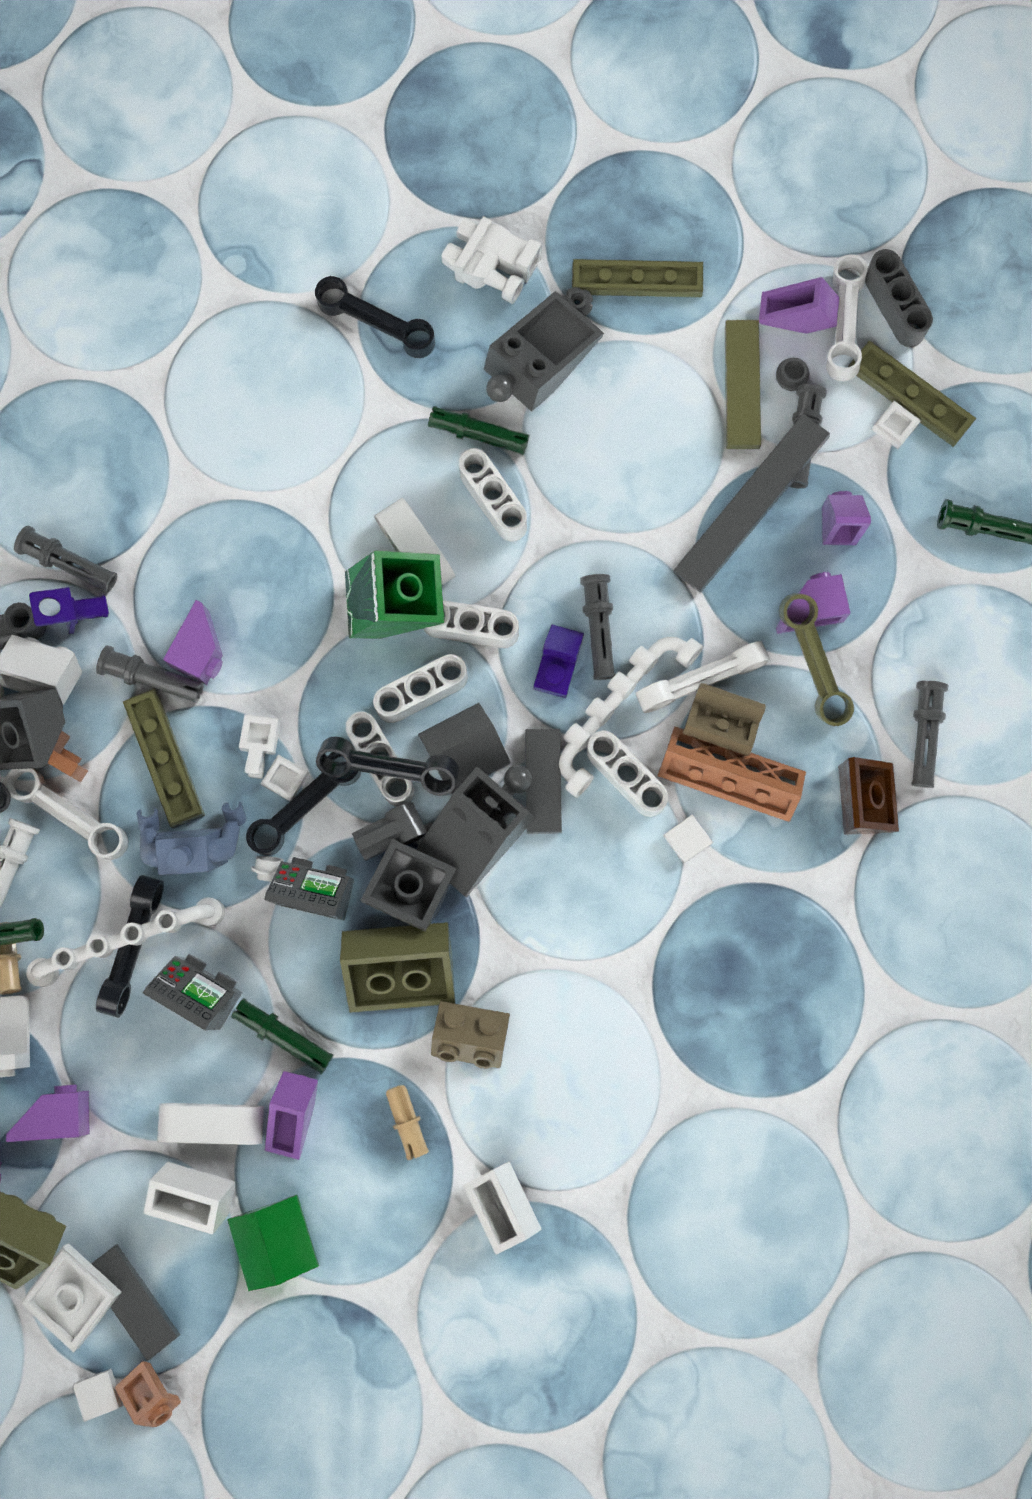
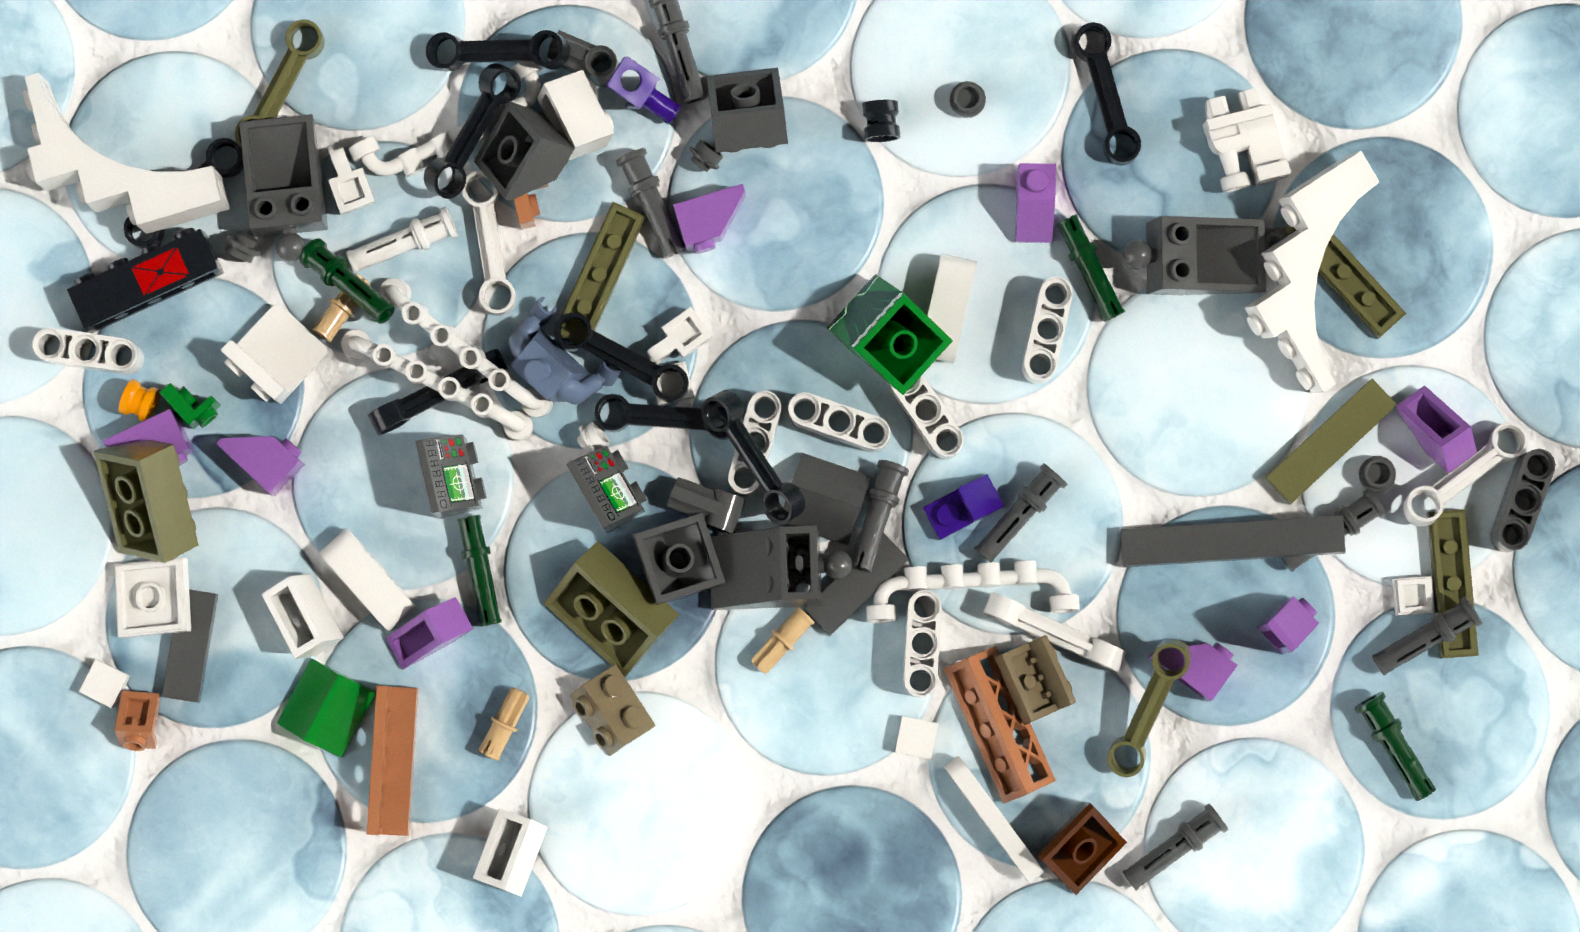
camera: 45 degrees right, 5 degrees up
(153, 554) = (747, 110): none -> dark grey slope
(155, 610) = (705, 156): none -> dark grey plate
(202, 884) = (399, 294): none -> white bar
(231, 794) = (621, 357): none -> black piece
(247, 474) = (881, 120): none -> black wheel
(289, 407) = (967, 99): none -> dark grey plate
(356, 1231) = (392, 761): none -> nougat fence
(399, 424) = (1035, 202): none -> medium lavender slope
(502, 707) = (882, 499): none -> dark grey pin
(533, 868) = (782, 640): none -> tan axle
(605, 296) = (1295, 261): none -> white arch
(795, 838) = (993, 819): none -> white beam
(938, 421) = (1441, 628): none -> dark grey pin

